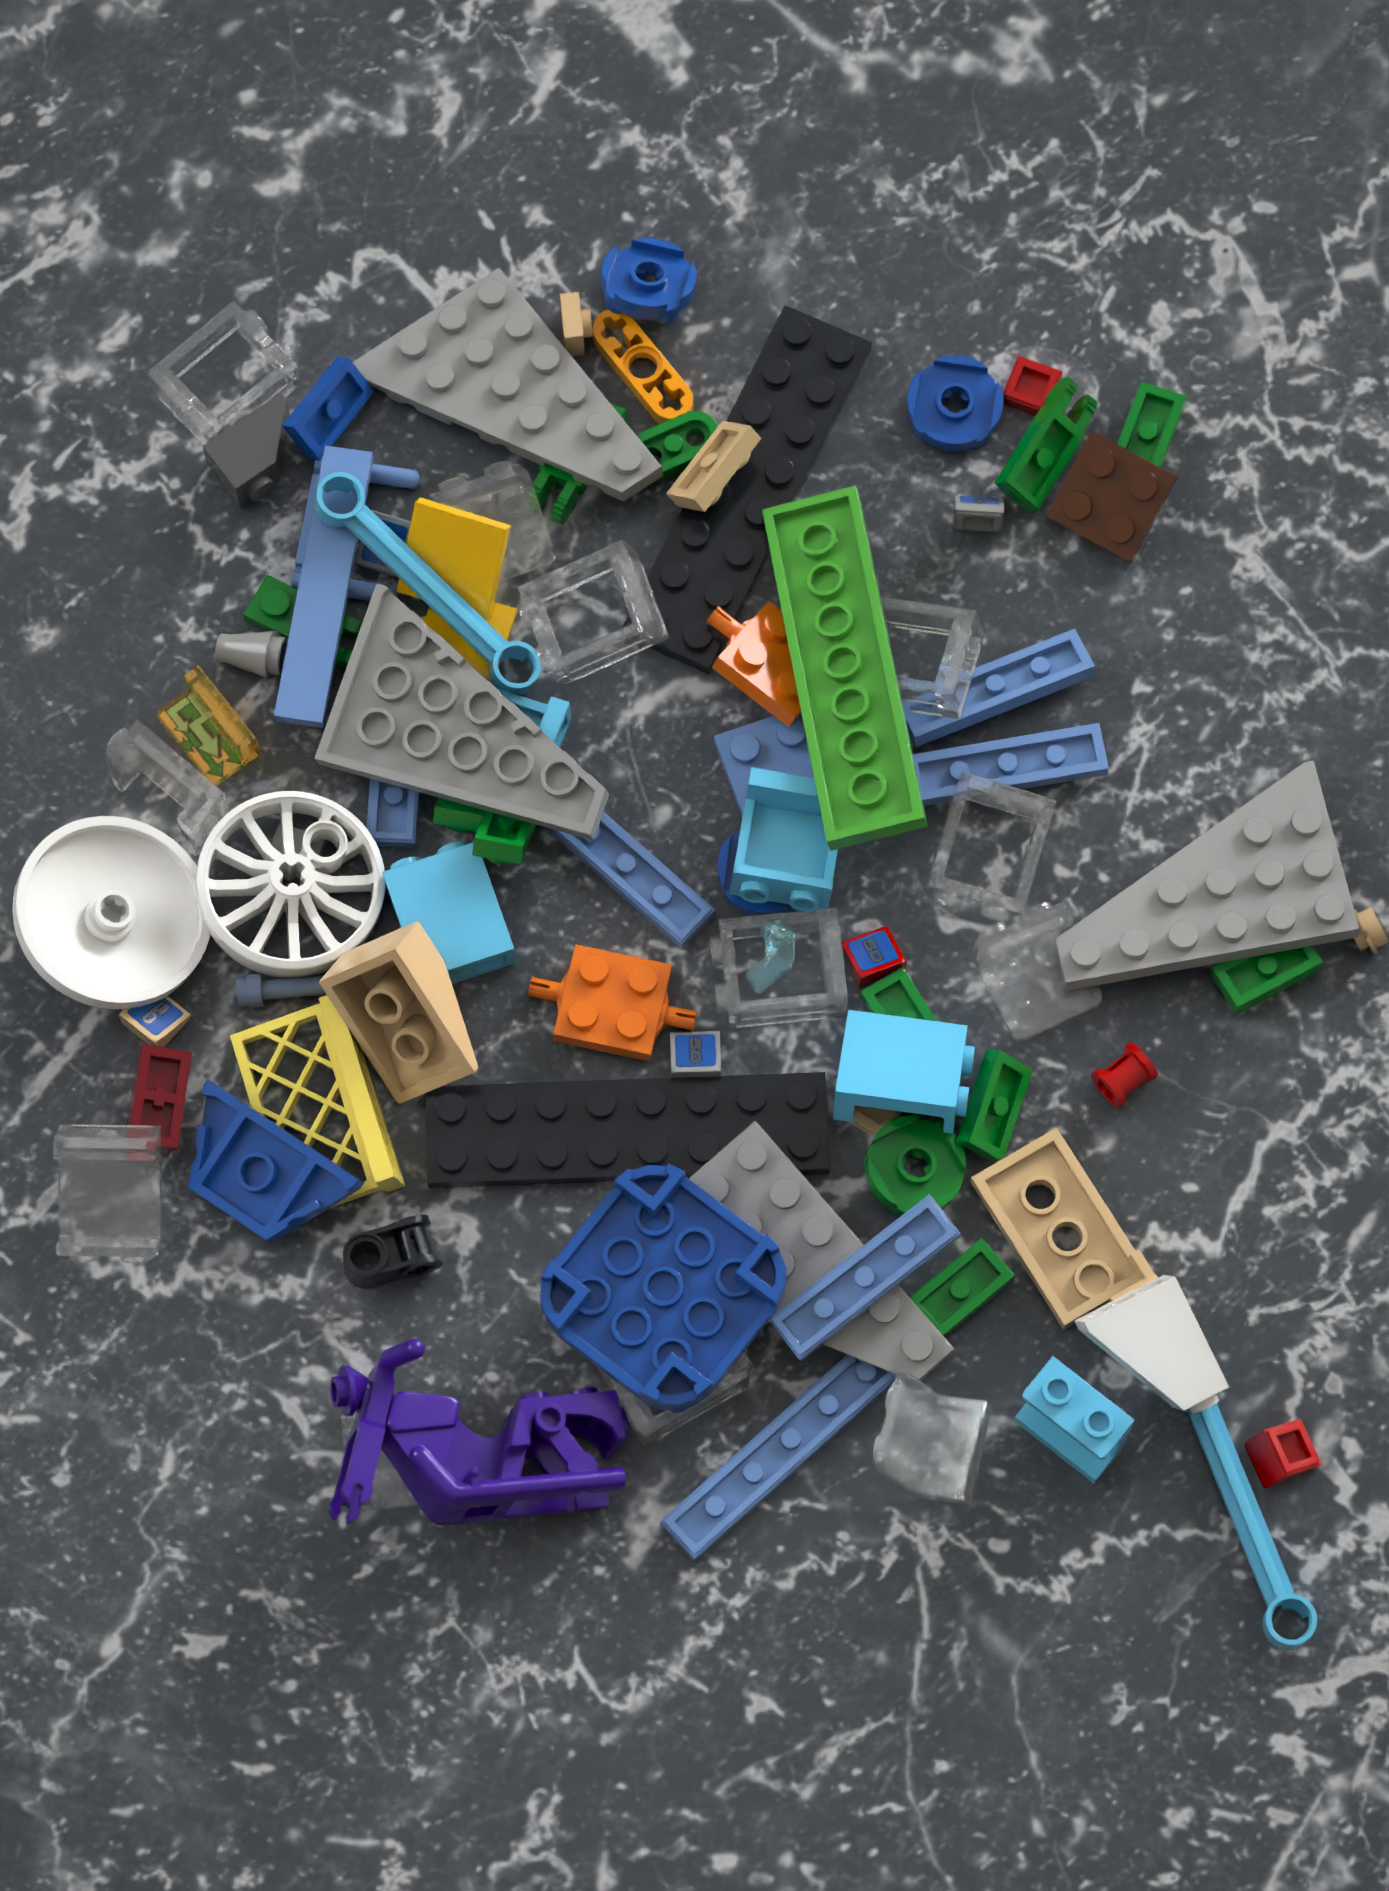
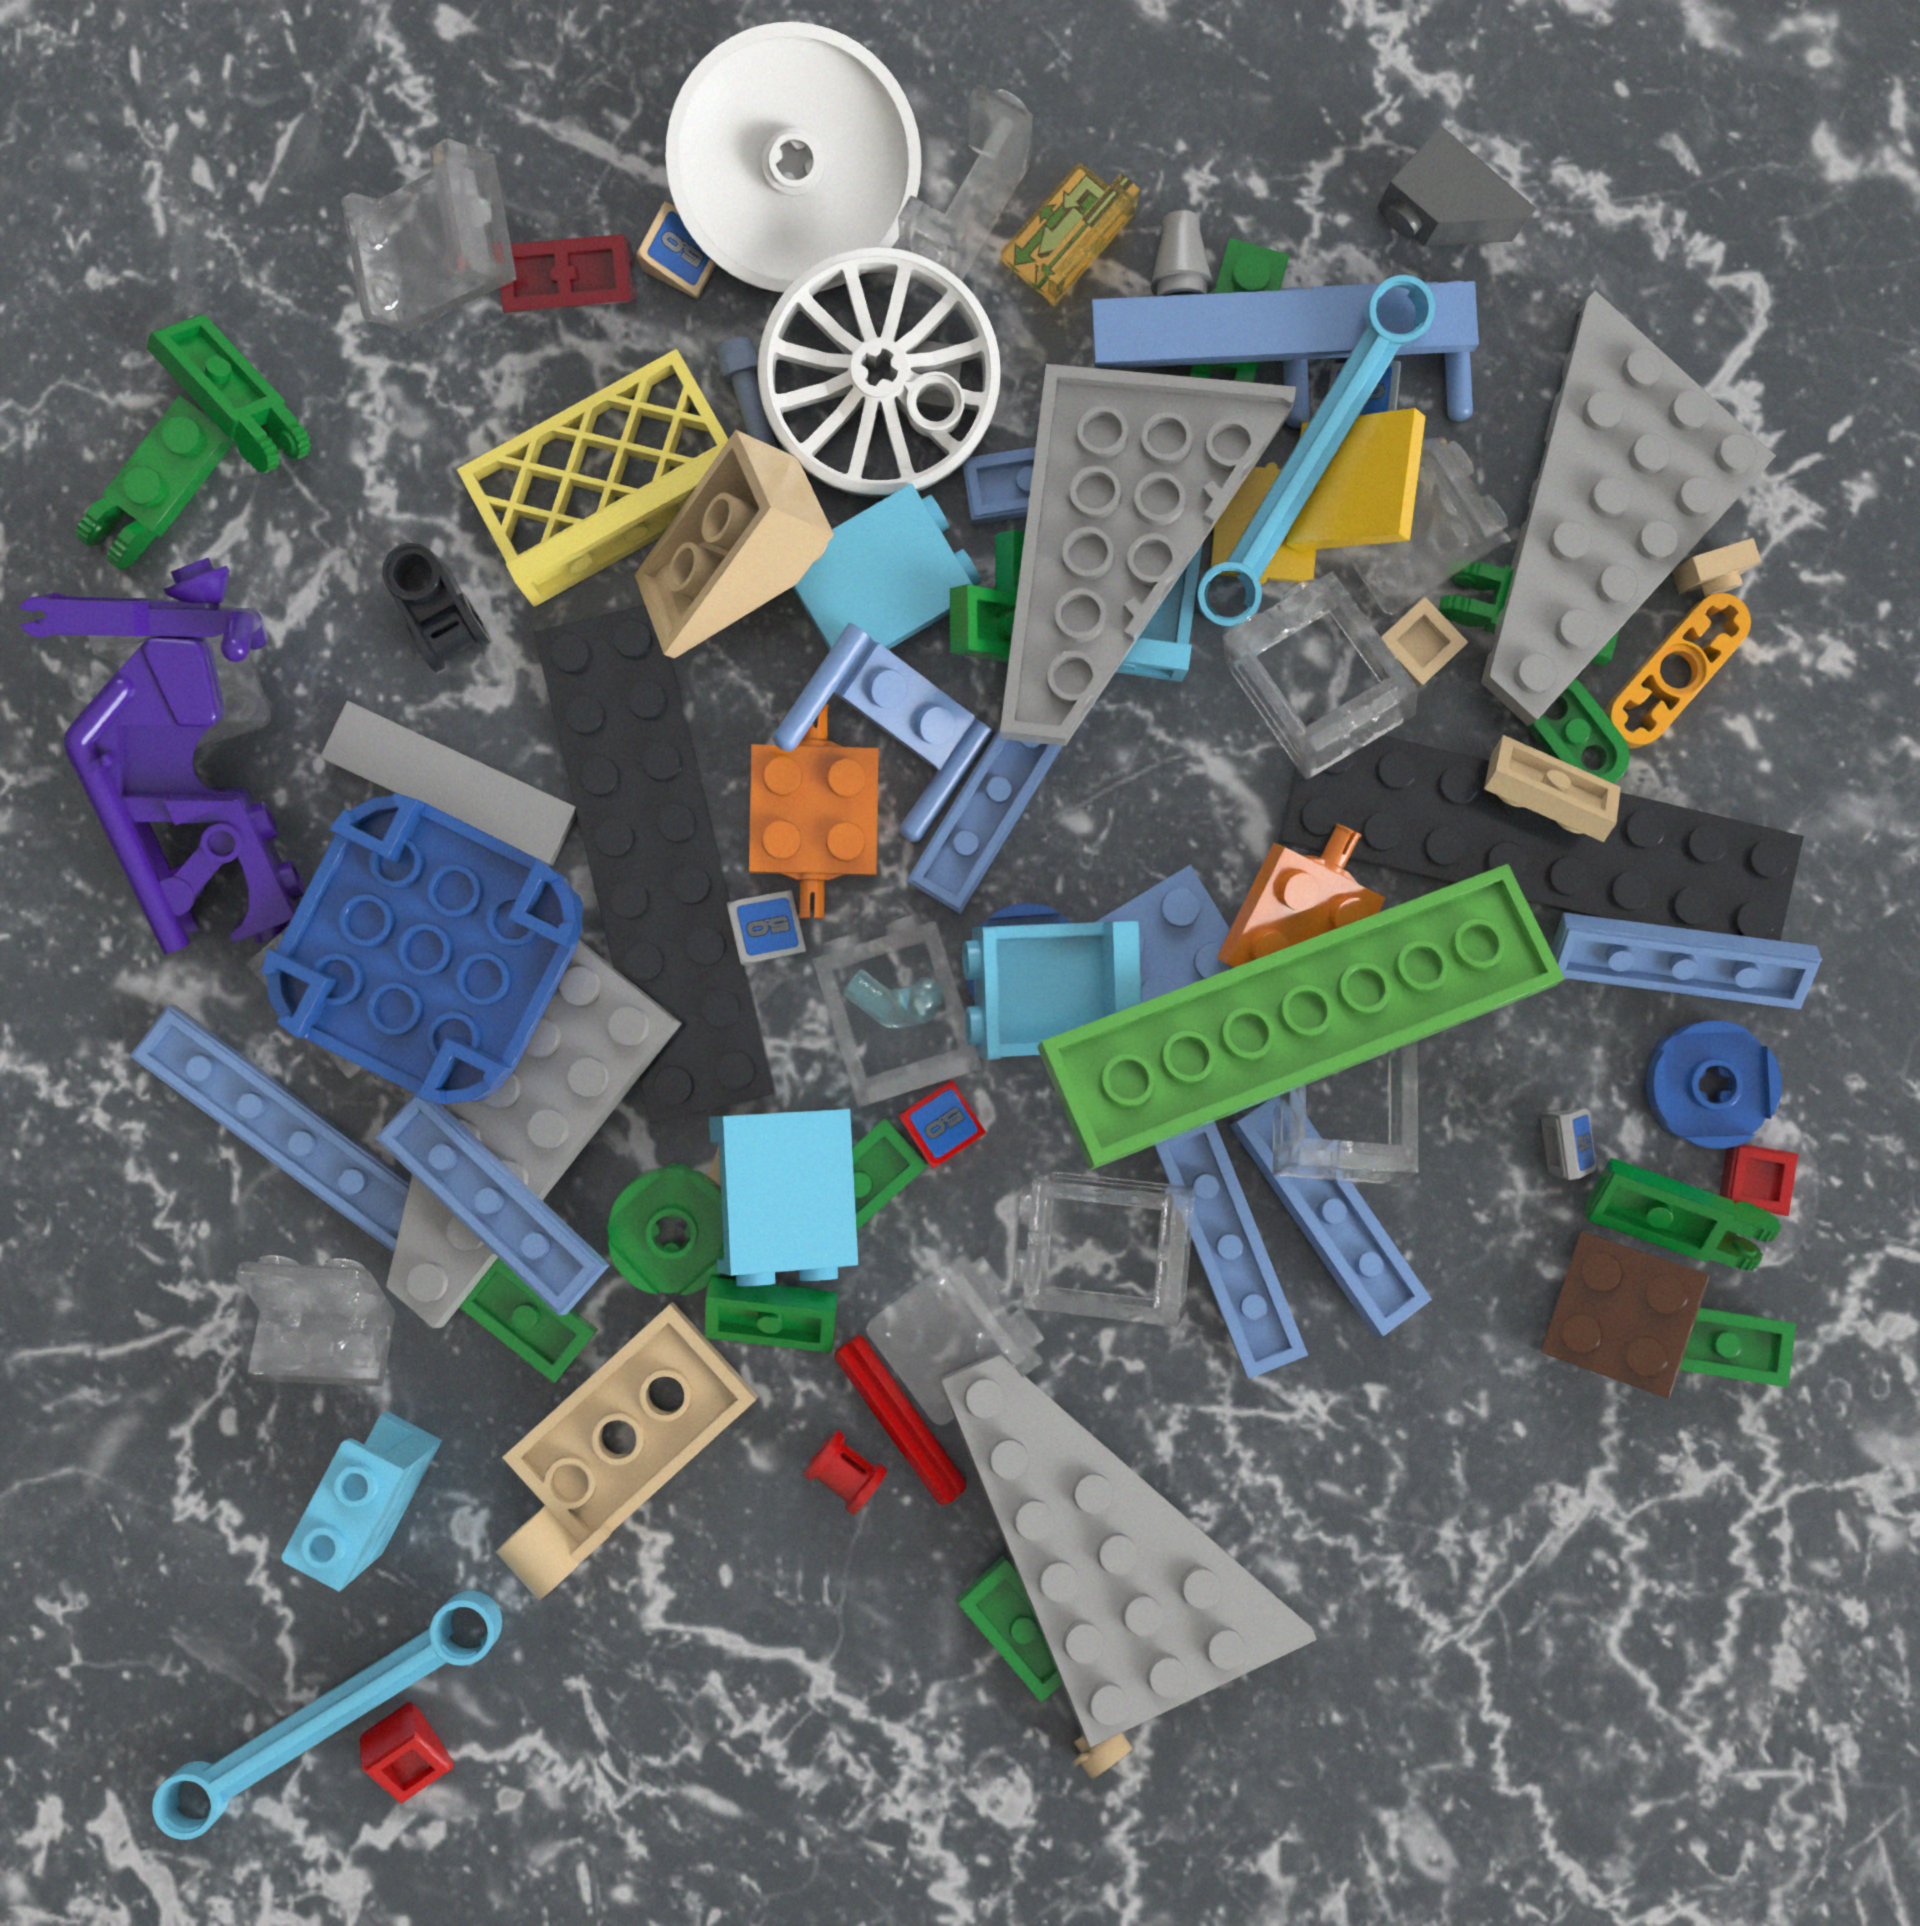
camera: 75 degrees right, 15 degrees up
(186, 1376) = (230, 391): none -> green hinge
(187, 407) = (1579, 94): clear window -> none
(237, 1451) = (156, 482): none -> green hinge
(261, 1169) = (504, 421): blue wing -> none
(328, 408) = (1531, 278): blue plate -> none
(517, 1287) = (449, 782): none -> light grey tile
(553, 912) = (899, 704): none -> medium blue plate
(580, 535) = (1423, 641): none -> tan plate
(657, 300) = (1770, 654): blue plate -> none
(859, 403) = (1685, 960): none -> medium blue tile
(1093, 1030) = (900, 1420): none -> red axle
(1159, 1343) = (476, 1587): white slope -> none

